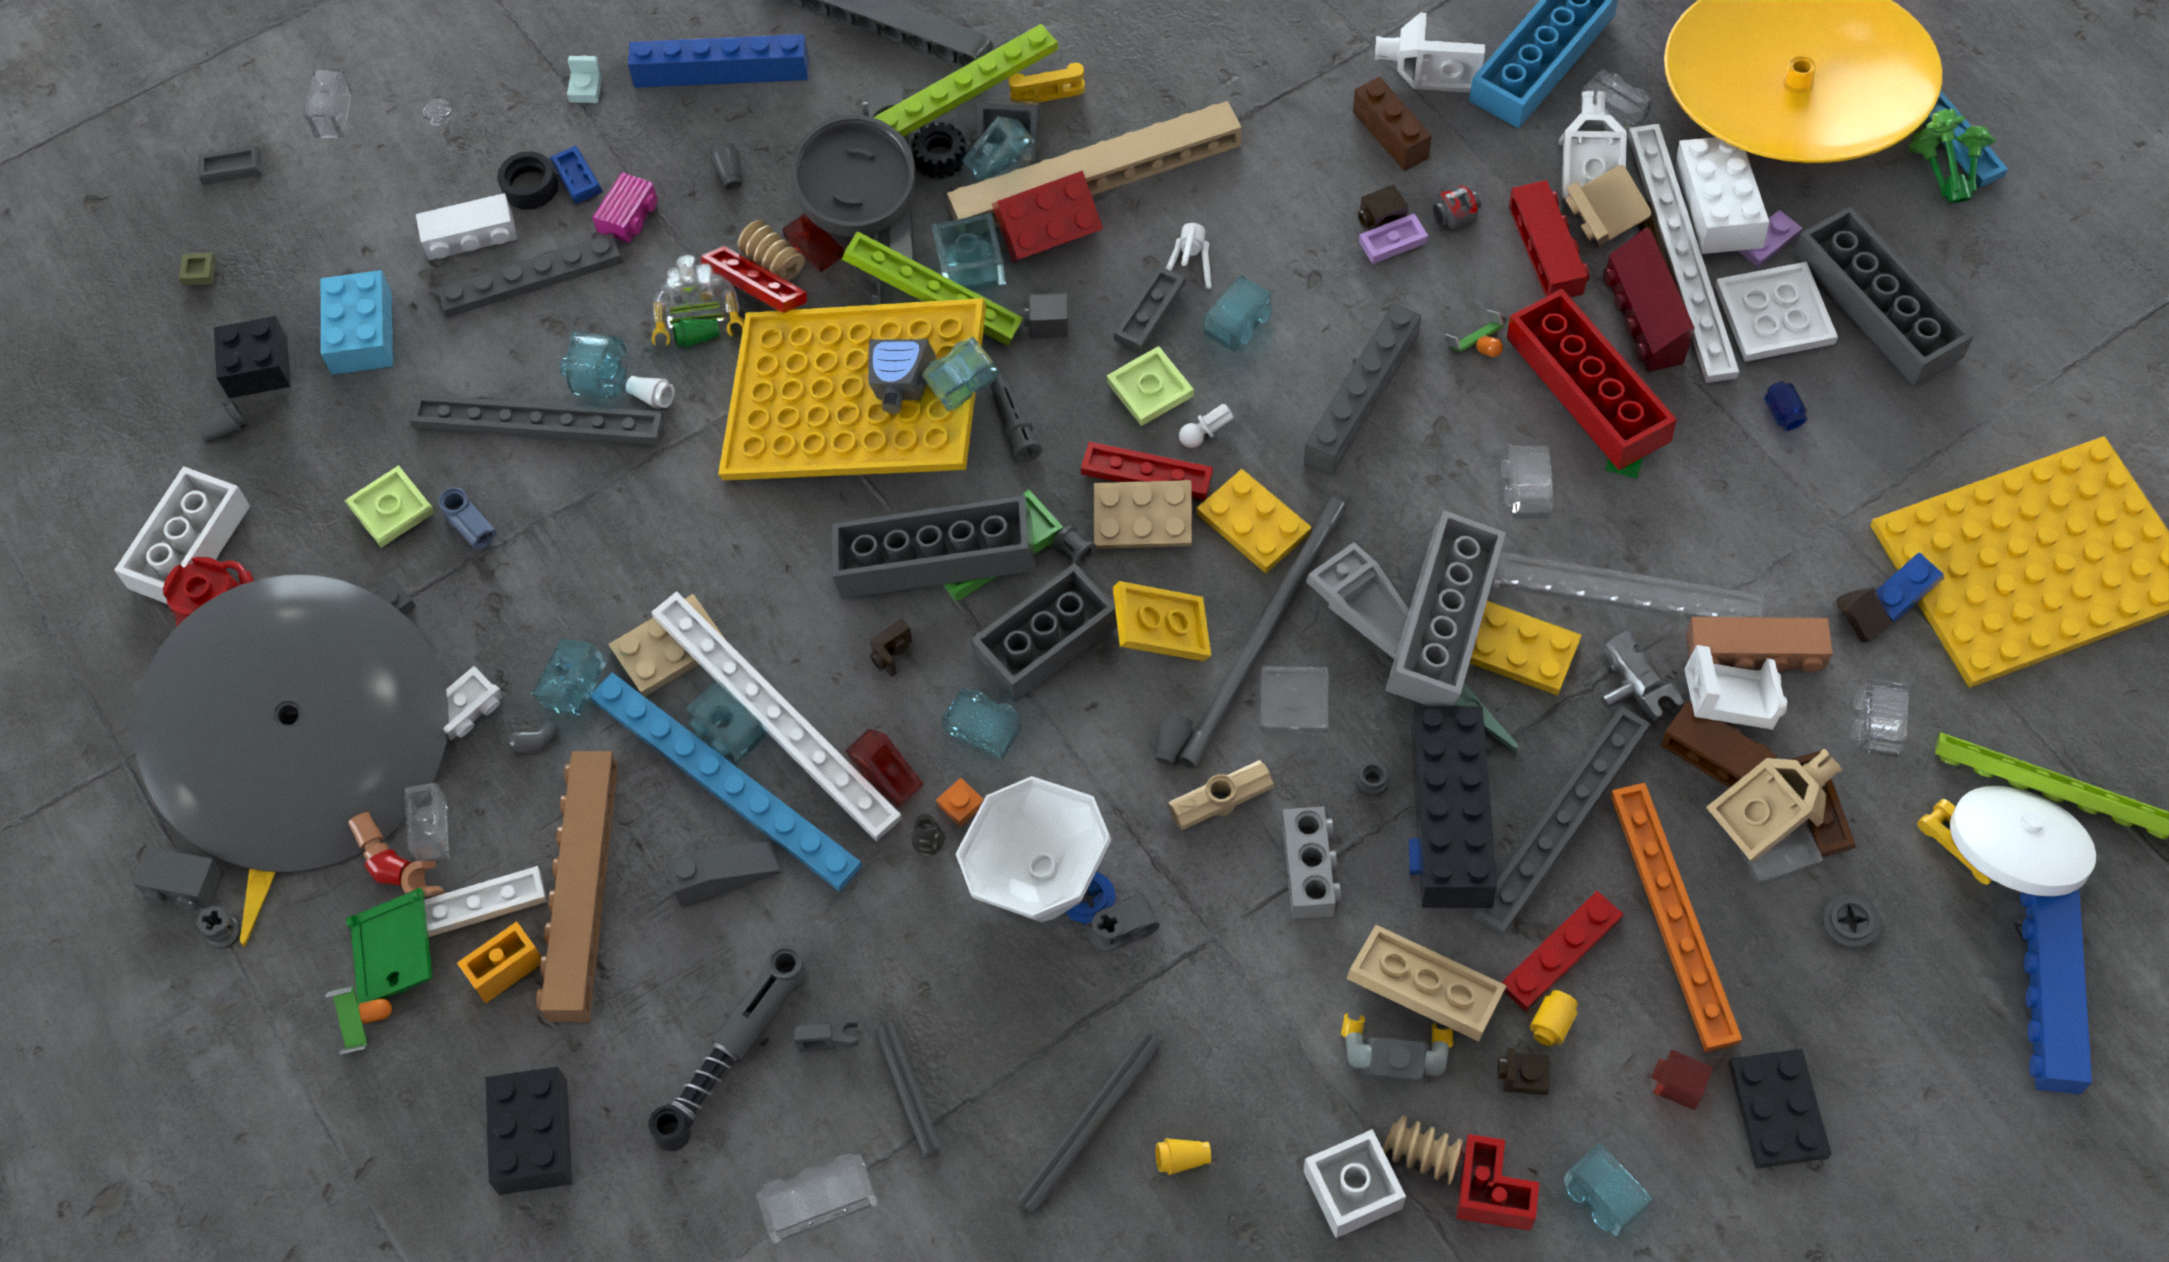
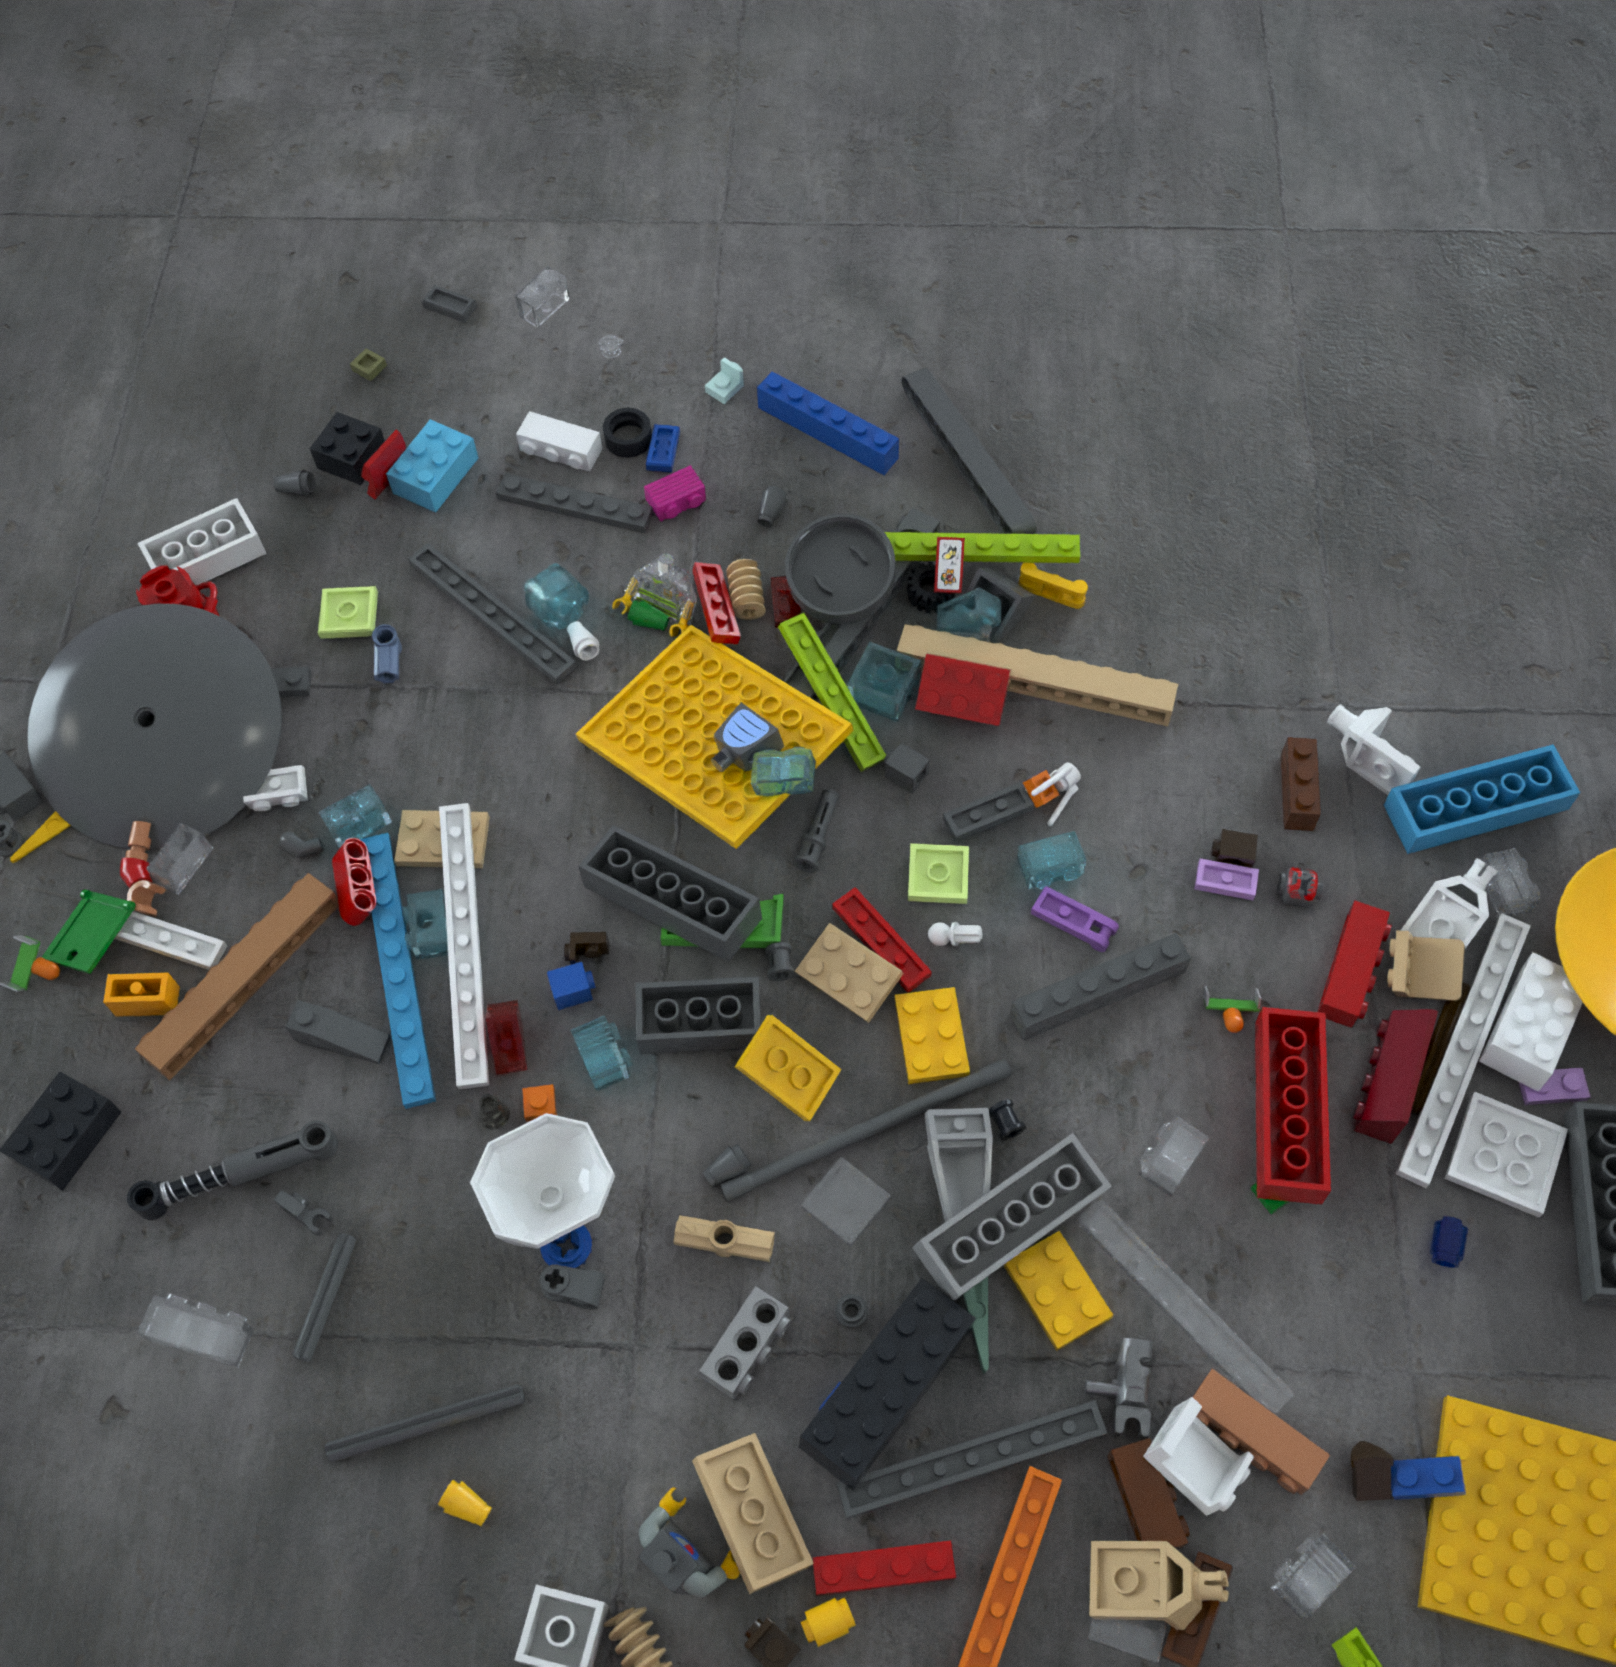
camera: 35 degrees right, 0 degrees up
(310, 346) = (380, 462): none -> red slope
(620, 732) = (354, 881): none -> red beam
(905, 686) = (571, 985): none -> blue brick
(947, 116) = (949, 565): none -> tile
(1174, 258) = (1045, 796): none -> orange plate
(1295, 349) = (1074, 918): none -> medium lavender plate
(1374, 544) = (1006, 1119): none -> black bush

